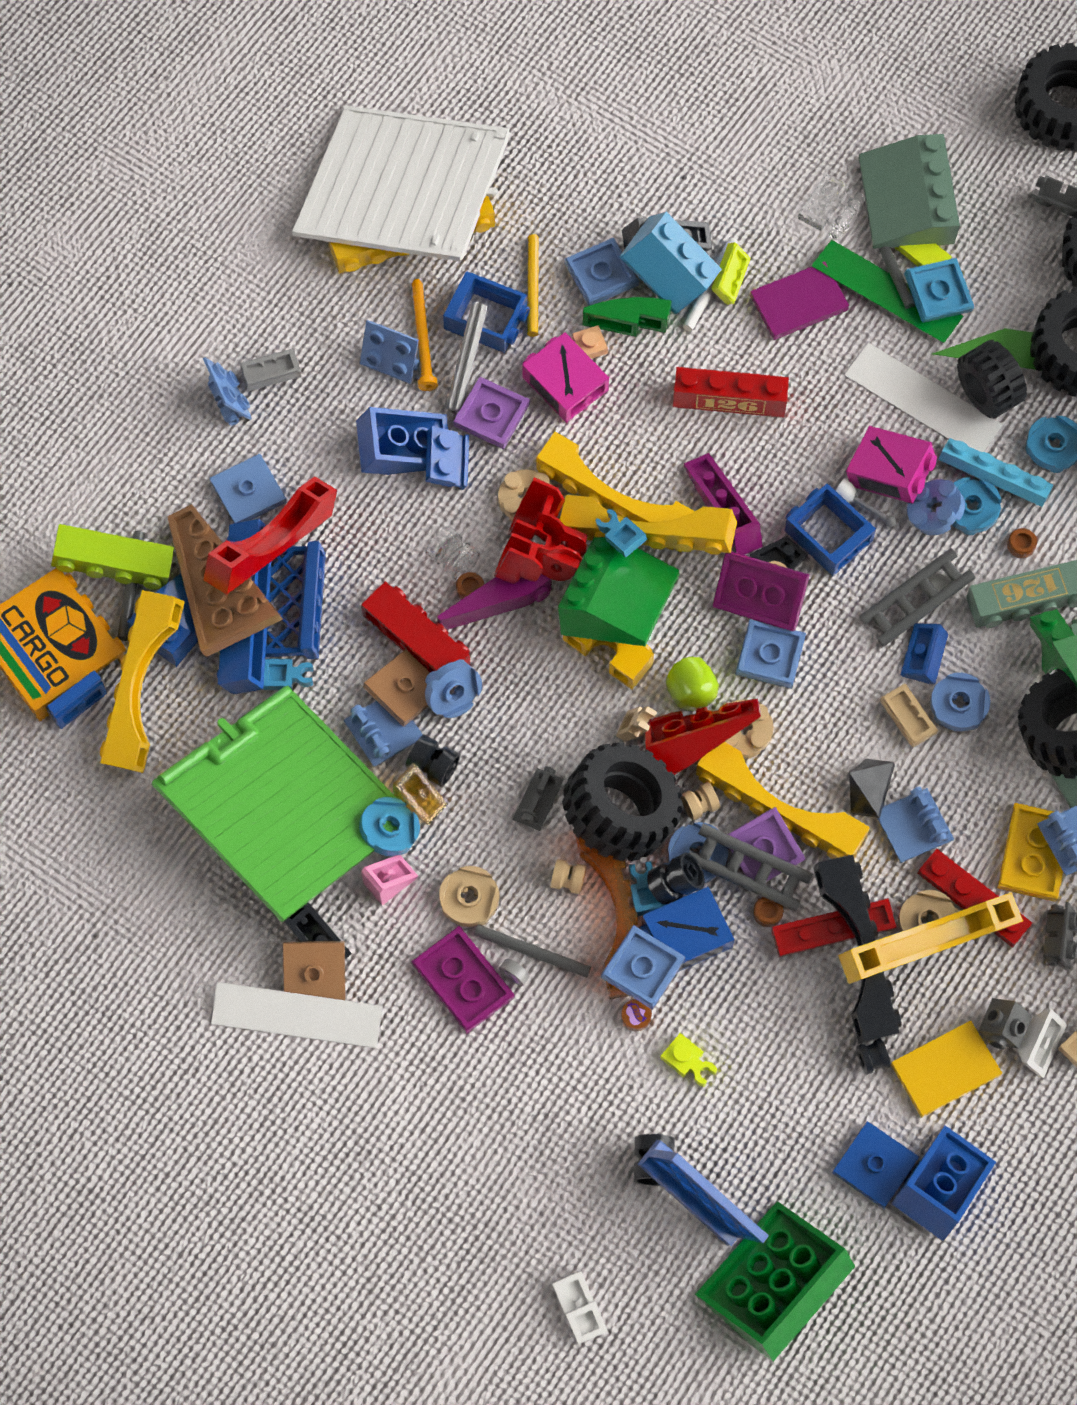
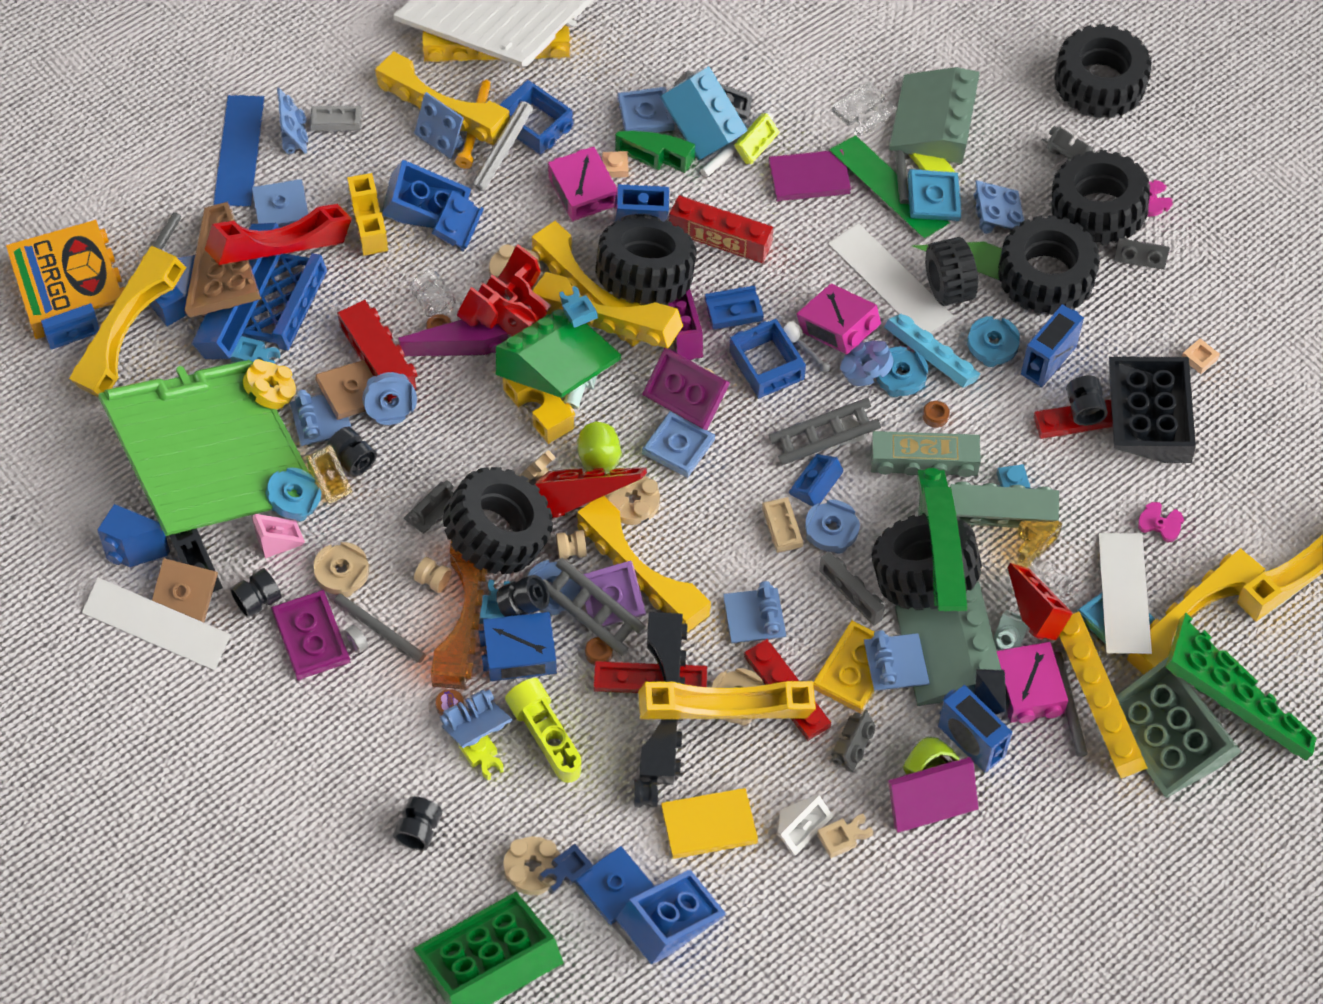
camera: 15 degrees right, 10 degrees down
(112, 557) = (142, 221): lime brick -> none
(177, 435) = (239, 150): none -> blue sticker
(238, 929) = (131, 538): none -> blue slope
(324, 696) = (262, 374): none -> yellow plate
(355, 489) = (367, 214): none -> yellow arch
(390, 953) = (252, 594): none -> black wheel
(435, 333) = (481, 120): none -> yellow arch
(491, 412) = (509, 196): medium lavender plate -> none
(532, 285) = (584, 108): yellow bar -> none
(579, 1307) = (306, 928): white slope -> none
(643, 393) = (641, 201): none -> blue brick
(643, 967) = (465, 659): medium blue plate -> none
(664, 479) = (645, 260): none -> black tyre
(673, 1030) = (475, 723): none -> medium blue hinge
(699, 1195) = (441, 858): blue fence -> none
(723, 995) = (531, 704): none -> neon yellow beam
(774, 479) = (734, 307): none -> blue plate
(775, 1183) = (519, 854): none -> tan plate
(782, 551) = (721, 366): black piece -> none
(825, 1163) = (567, 866): none -> dark blue plate
(869, 787) = (724, 572): slope -> none
(1004, 767) = (852, 588): none -> dark grey plate
(1005, 1023) = (774, 797): dark grey brick -> none
(1009, 286) = (997, 206): none -> medium blue hinge

